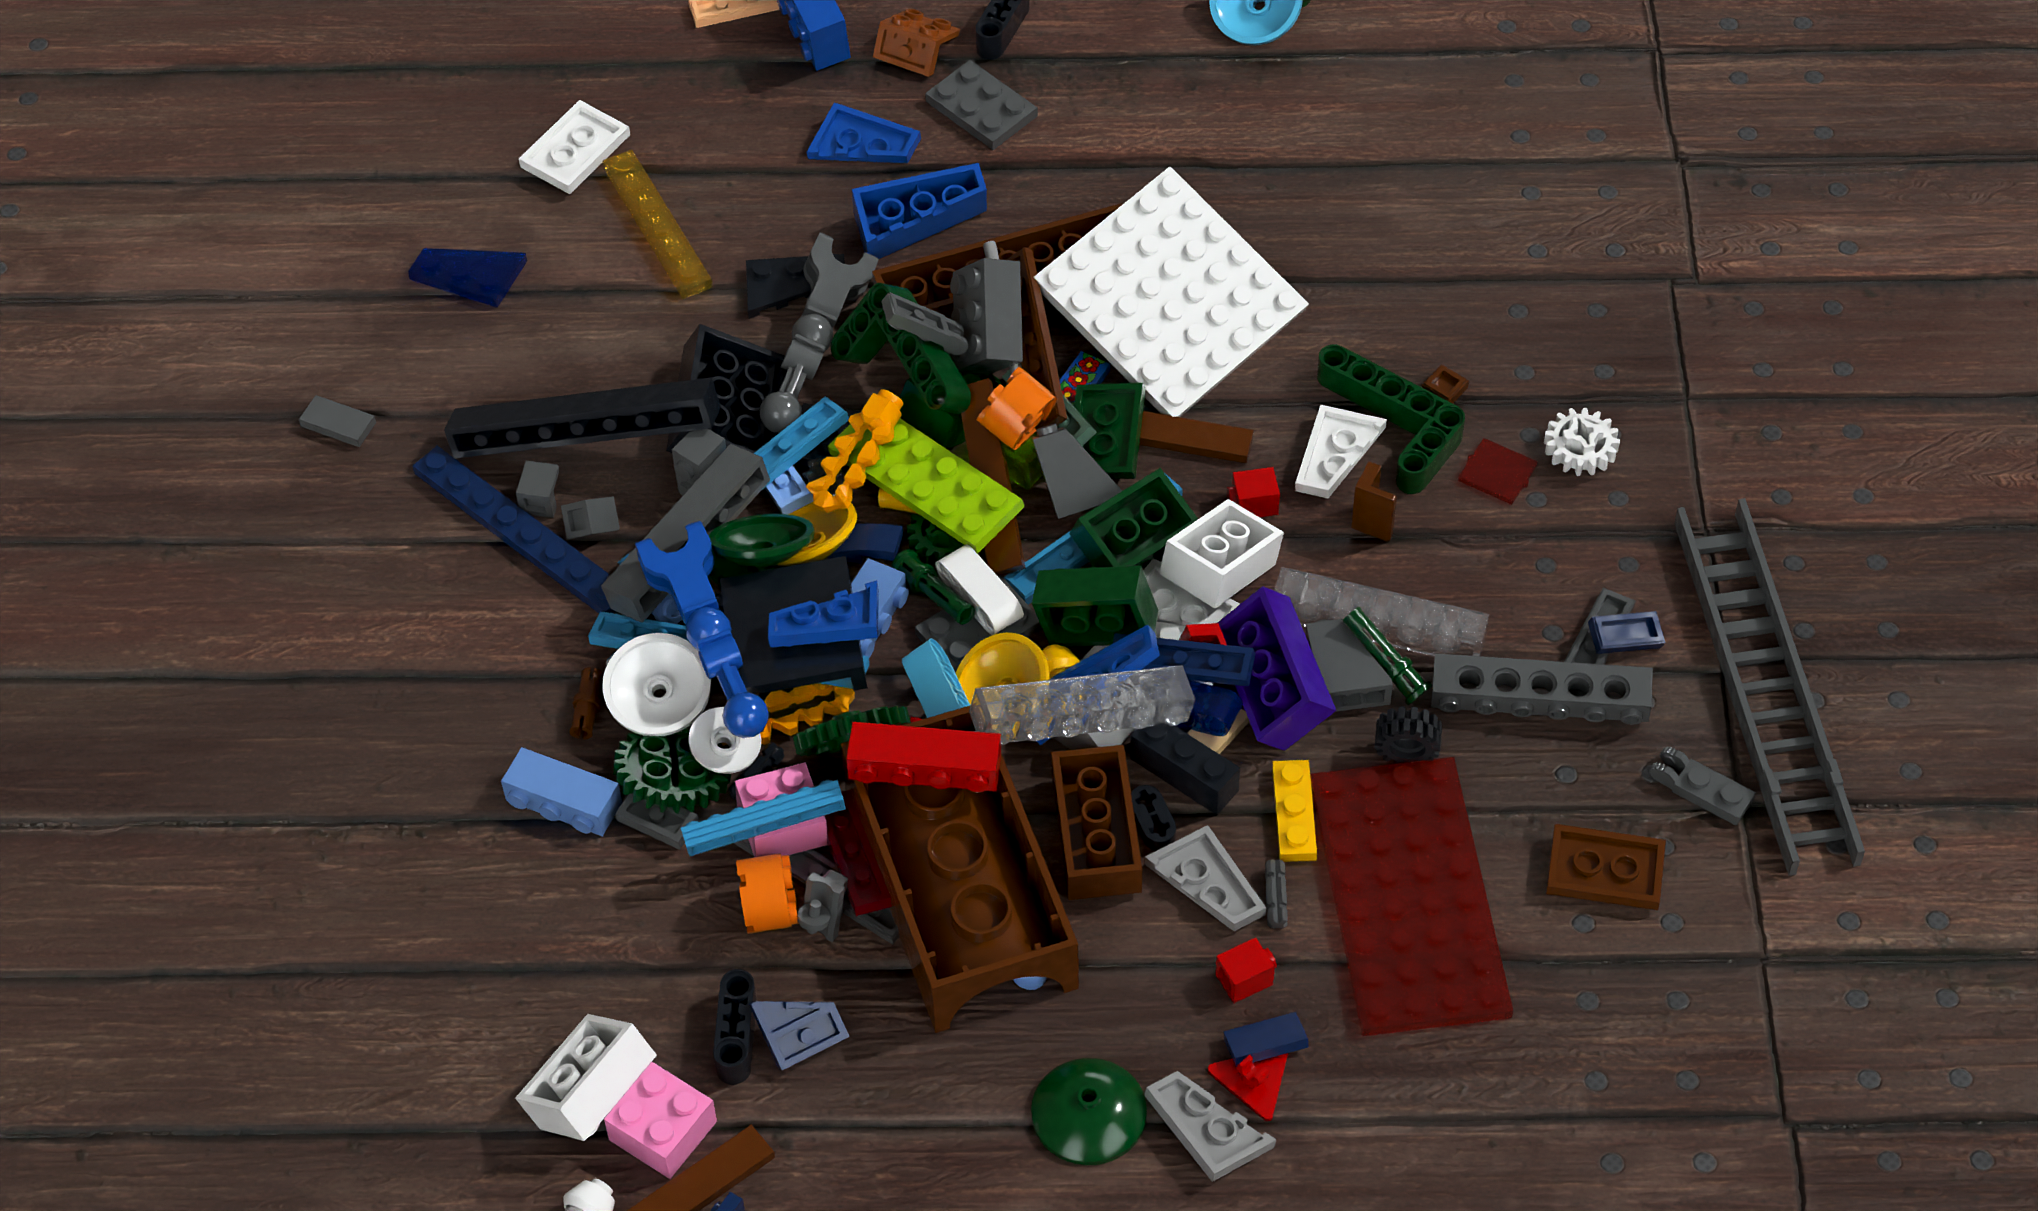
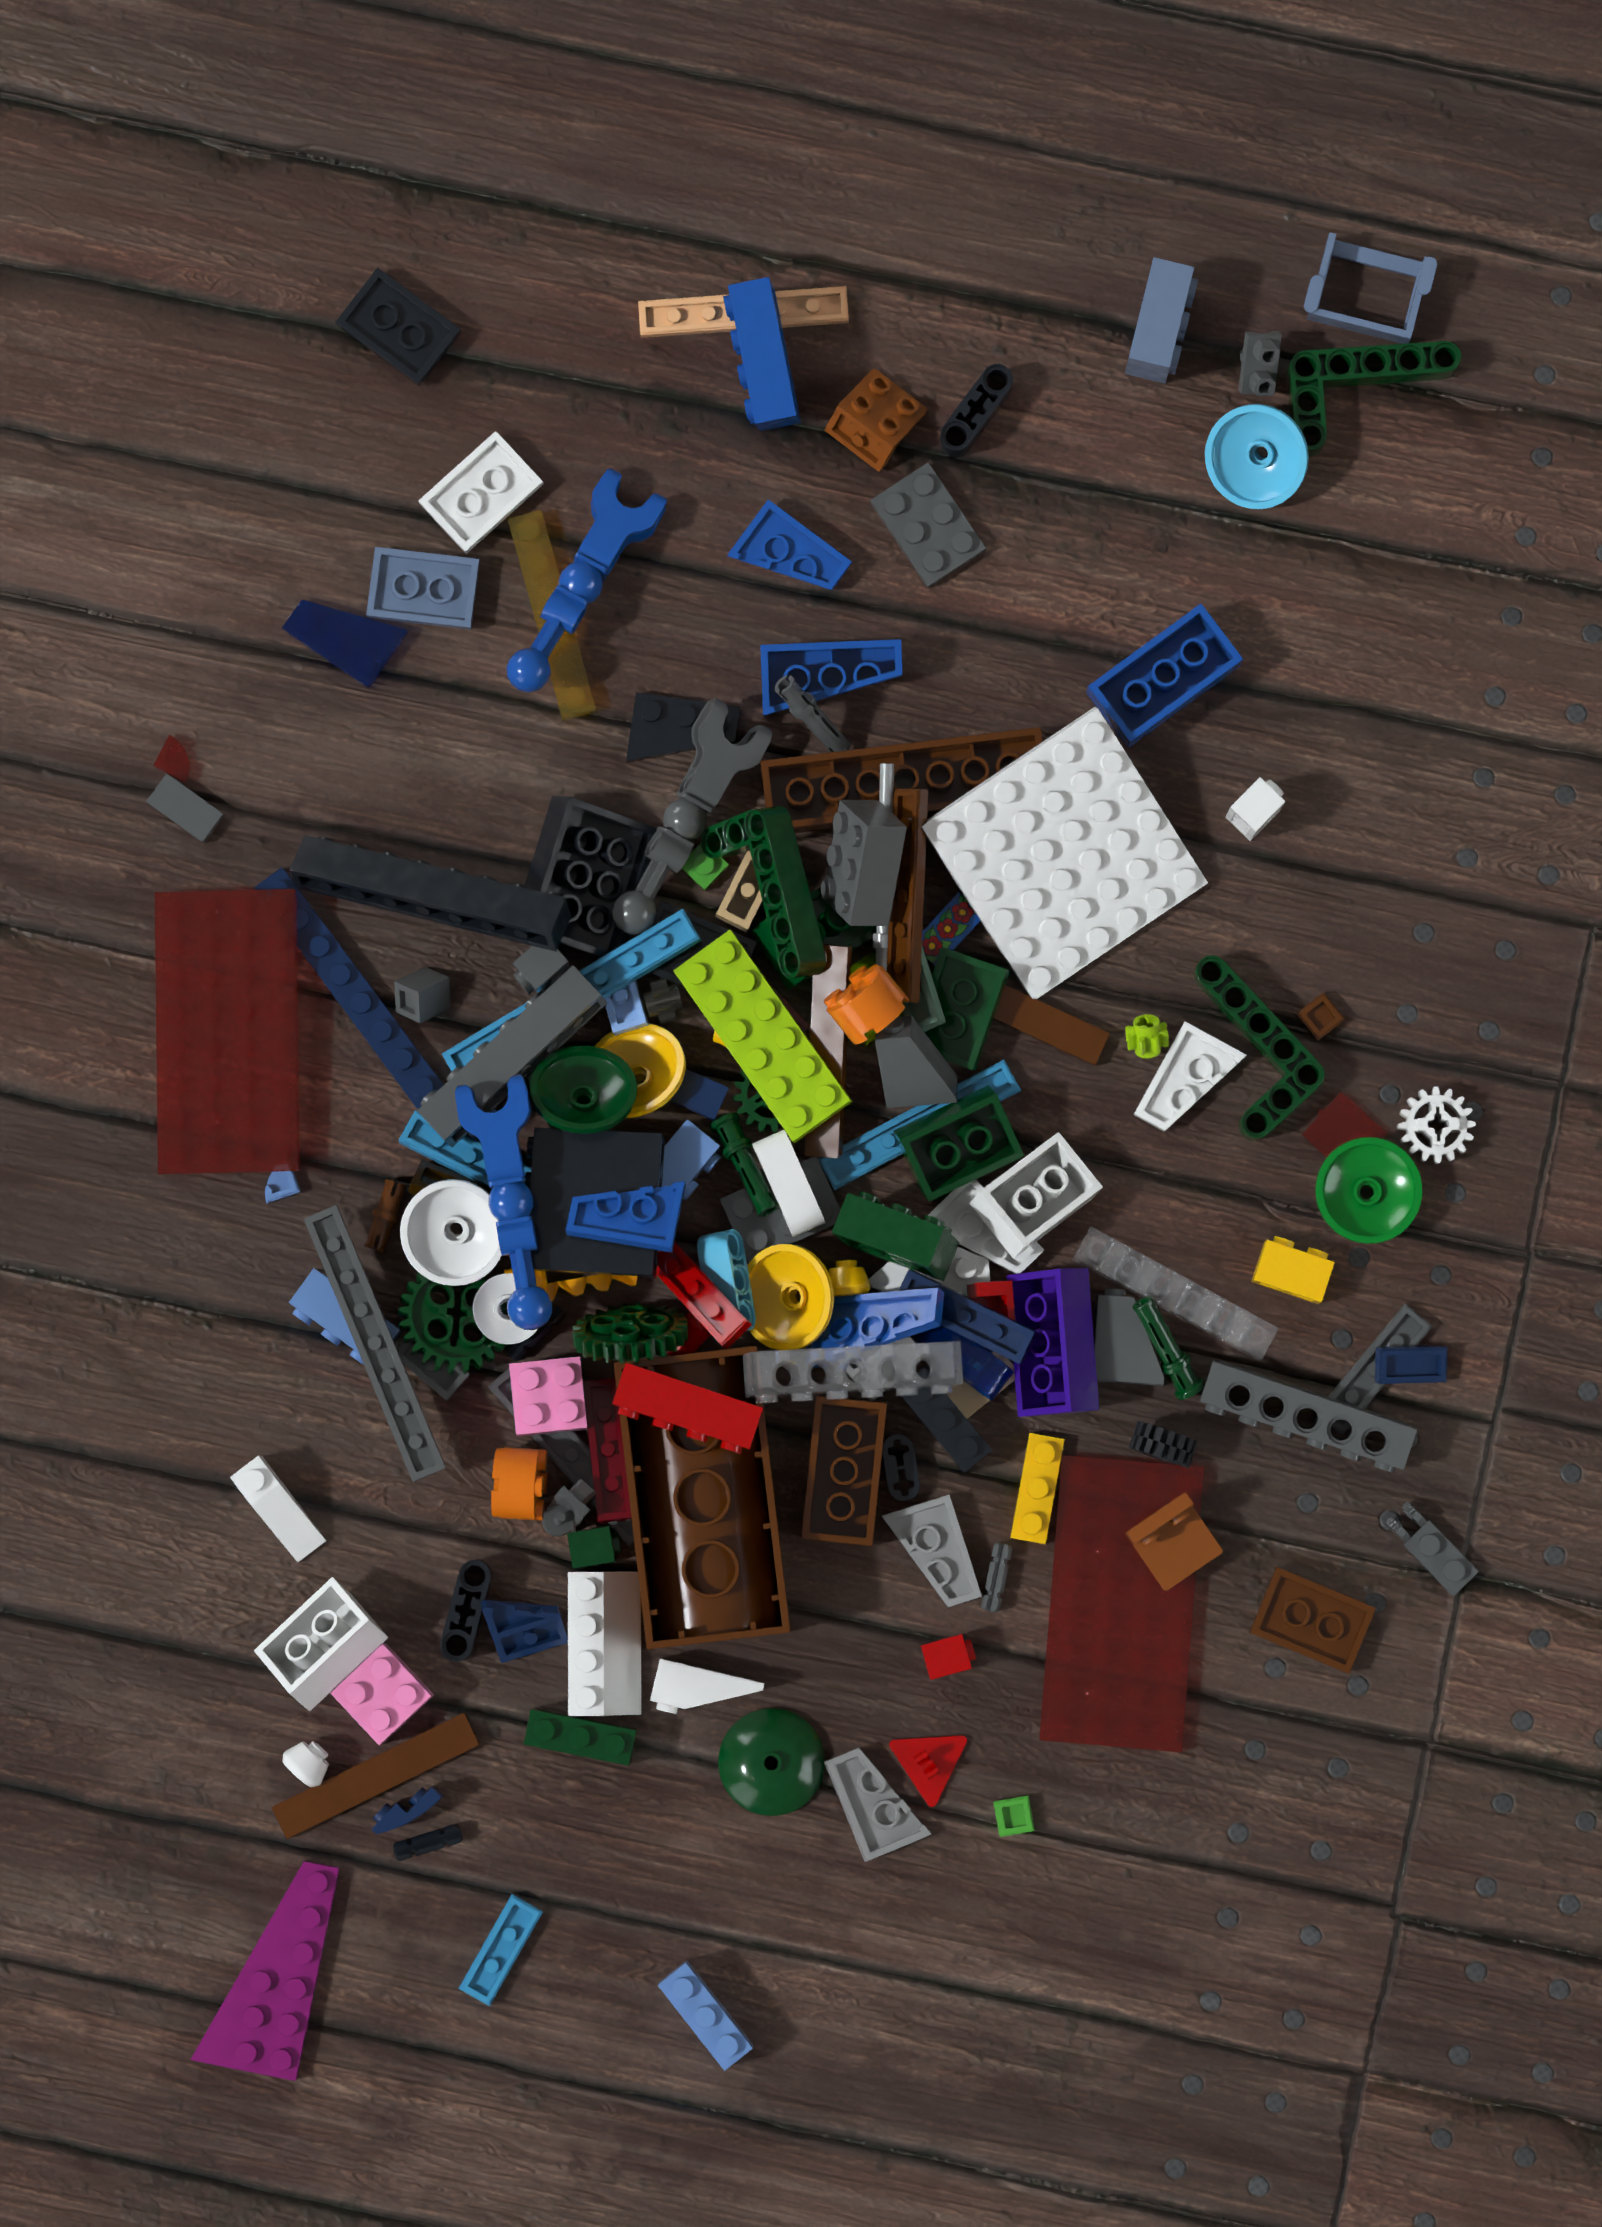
camera: 15 degrees right, 30 degrees up
(320, 385) = (173, 760): none -> clear red tile
(404, 582) = (227, 1031): none -> clear red plate
(478, 698) = (281, 1186): none -> medium blue tile
(479, 49) = (398, 327): none -> black plate
(518, 971) = (278, 1508): none -> white slope
(534, 221) = (423, 588): none -> sand blue plate
(536, 488) = (375, 948): dark grey panel -> none
(596, 794) = (375, 1343): none -> dark grey plate
(693, 157) = (583, 580): none -> blue piece
(763, 817) = (527, 1419): dark azure piece -> none
(838, 377) = (704, 869): none -> bright green plate
(855, 943) = (593, 1547): none -> dark green brick
(880, 418) = (727, 970): light orange sword -> none
(880, 1118) = (580, 1736): none -> dark green brick
(881, 372) = (742, 897): none -> tan brick
(886, 1029) = (604, 1644): none -> white slope
(903, 224) = (805, 707): none -> dark grey pin
(913, 691) = (701, 1296): none -> red tile
(924, 323) = (791, 881): dark grey hinge -> none
(991, 1048) = (691, 1686): none -> white slope
(1229, 152) = (1164, 675): none -> blue brick
(1256, 491) = (1089, 1115): red brick -> none
(1266, 1038) = (948, 1729): dark blue tile -> none
(1289, 422) = (1147, 1036): none -> lime gear
(1334, 233) = (1256, 807): none -> white brick
(1357, 1109) = (1013, 1816): none -> bright green tile
(1373, 507) = (1192, 1165): reddish brown panel -> none
(1442, 810) = (1174, 1542): none -> dark orange bracket
(1487, 579) = (1293, 1270): none -> yellow brick
(1537, 483) = (1390, 1176): none -> green dish
(1775, 623) = (1532, 1378): dark grey ladder -> none

